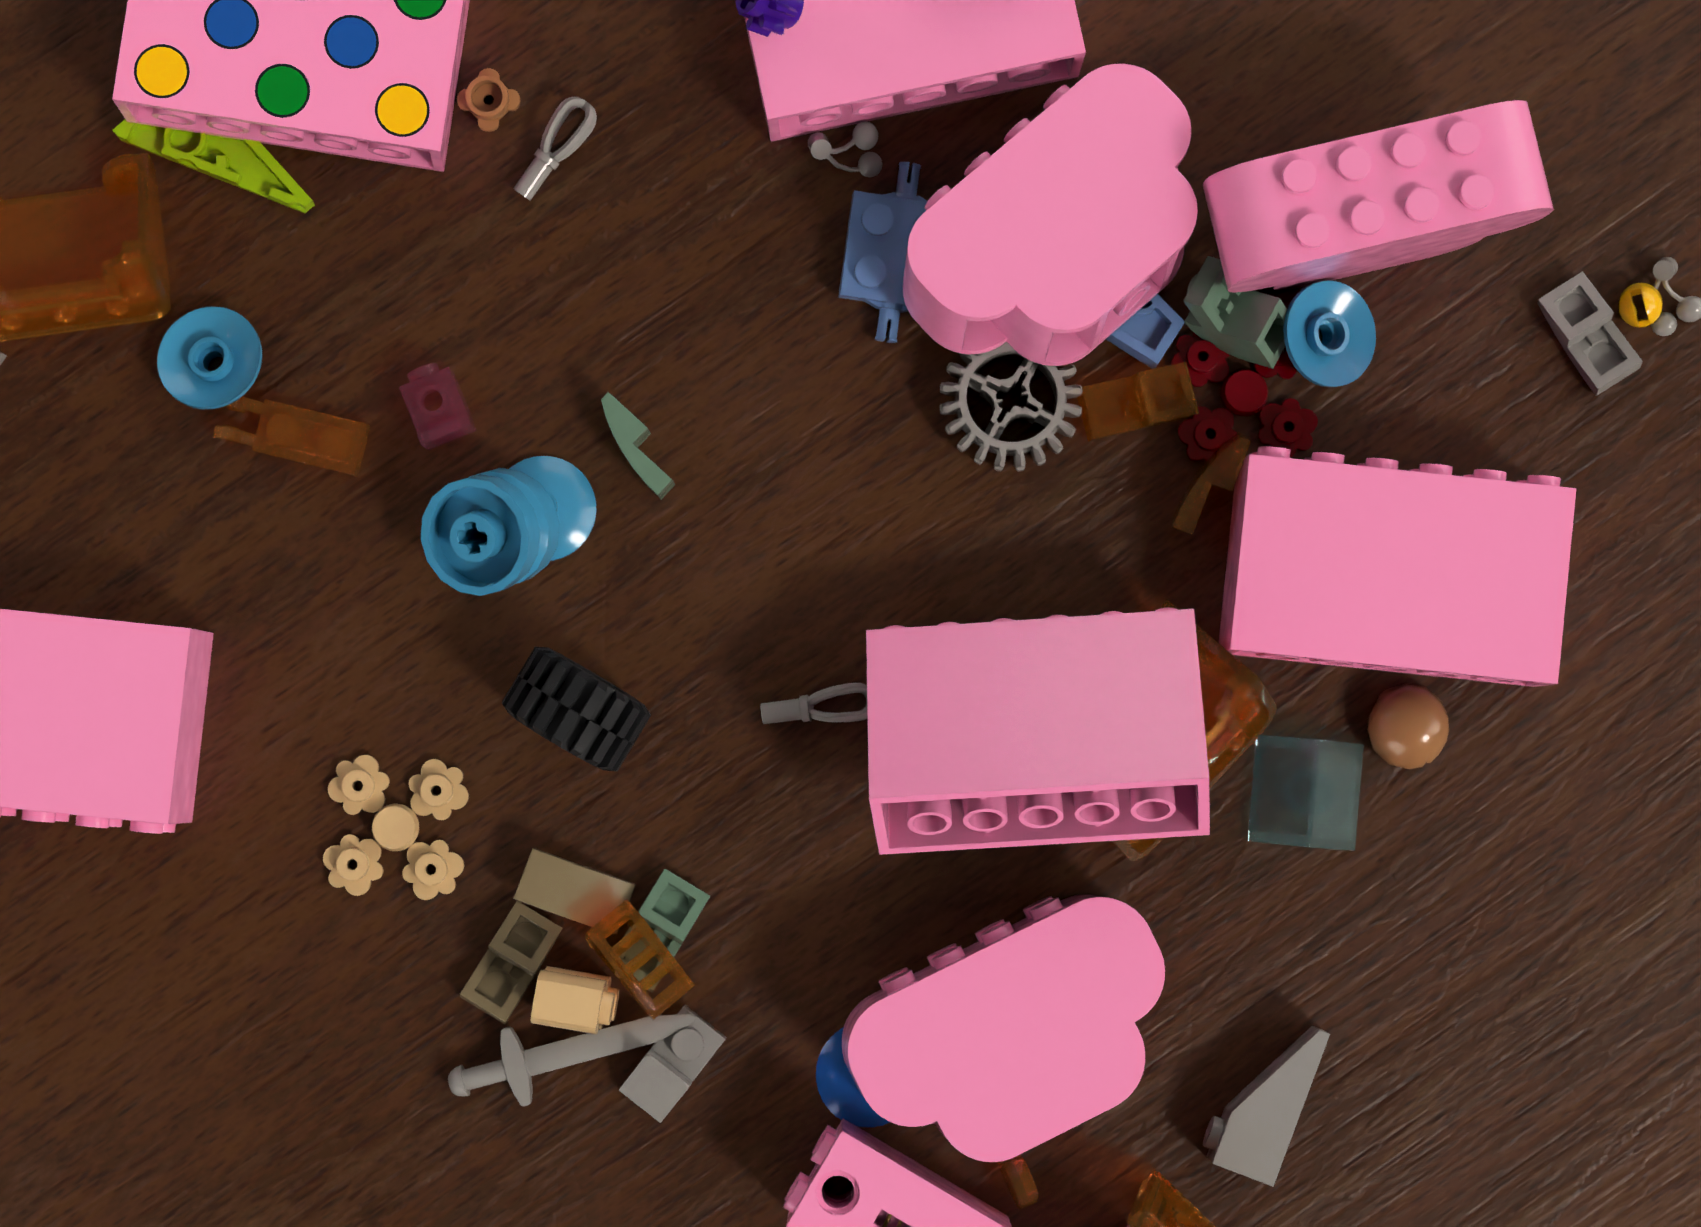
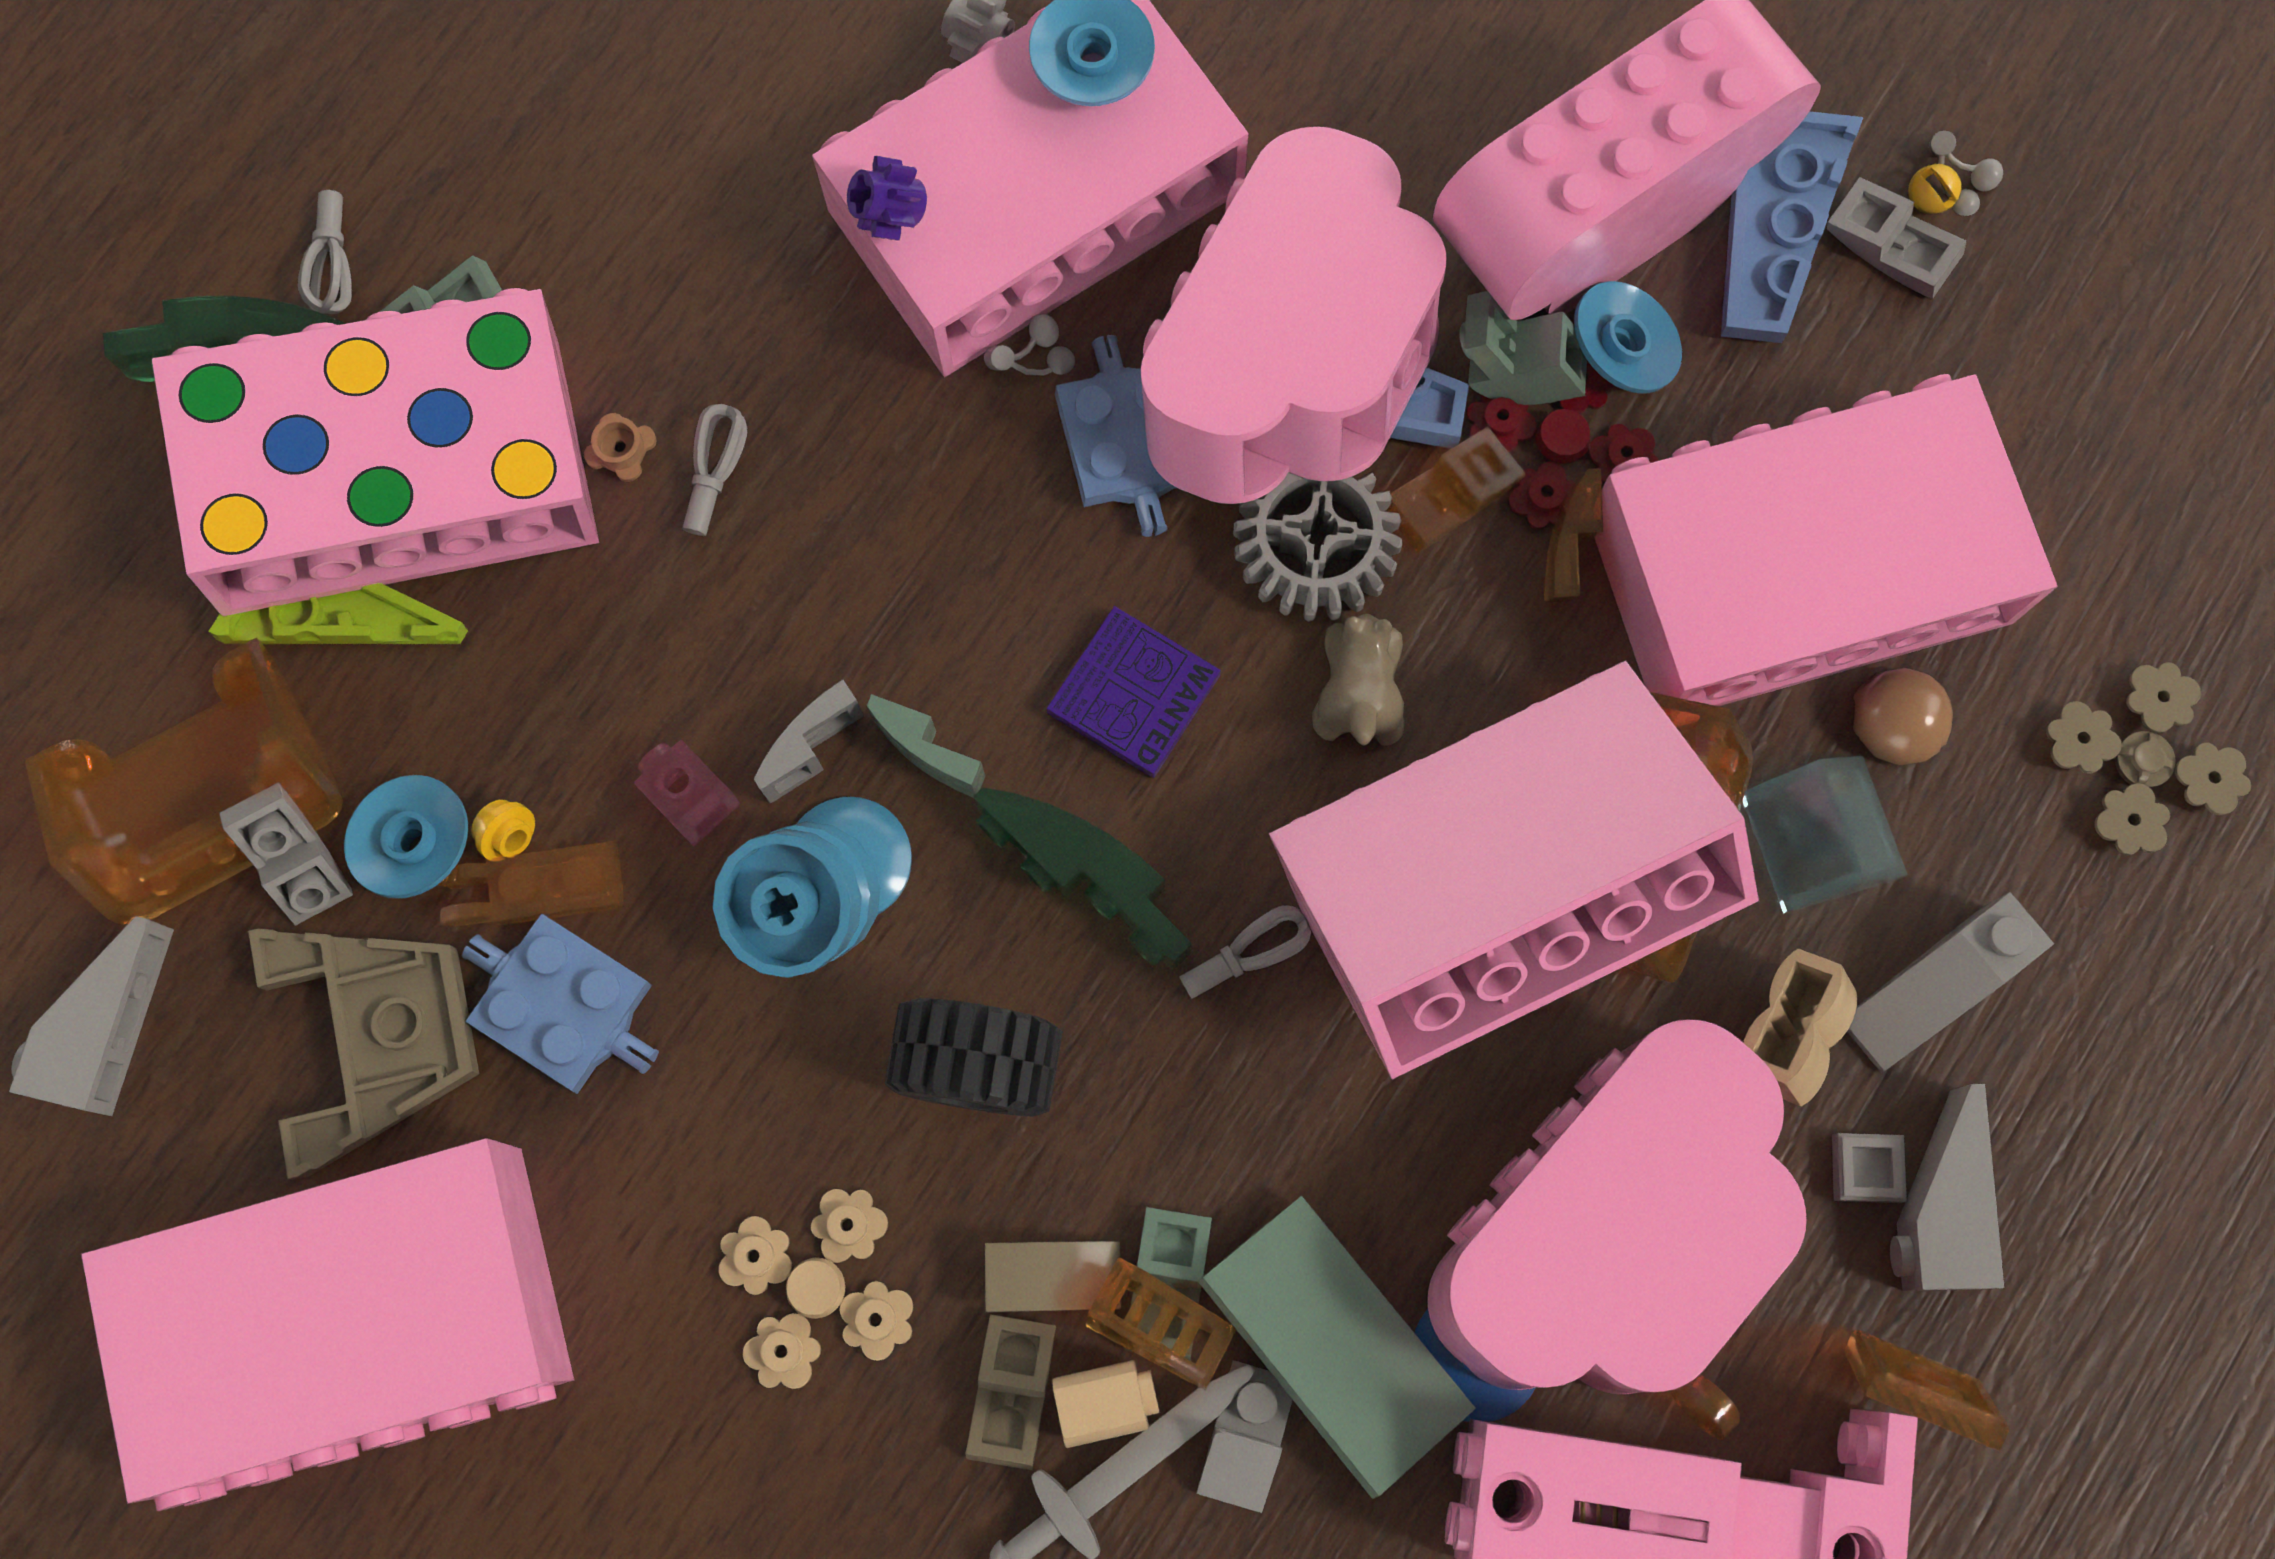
camera: 25 degrees left, 10 degrees down
(114, 336) = (287, 853): none -> light grey slope
(151, 501) = (395, 1028): none -> dark tan wing
(281, 534) = (559, 1003): none -> medium blue plate
(286, 381) = (503, 829): none -> yellow plate
(532, 412) = (791, 756): none -> light grey slope
(712, 574) = (1068, 850): none -> clear green slope
(763, 1027) = (1337, 1347): none -> sand green tile
(816, 465) = (1133, 692): none -> dark purple tile
(992, 540) = (1362, 686): none -> dark tan animal
(1219, 928) = (1806, 1016): none -> tan brick
(1221, 1058) = (1868, 1168): none -> light grey tile
(1342, 944) = (1947, 980): none -> light grey slope
(1498, 284) = (1778, 223): none -> medium blue wing
(1583, 836) = (2148, 759): none -> dark tan plant

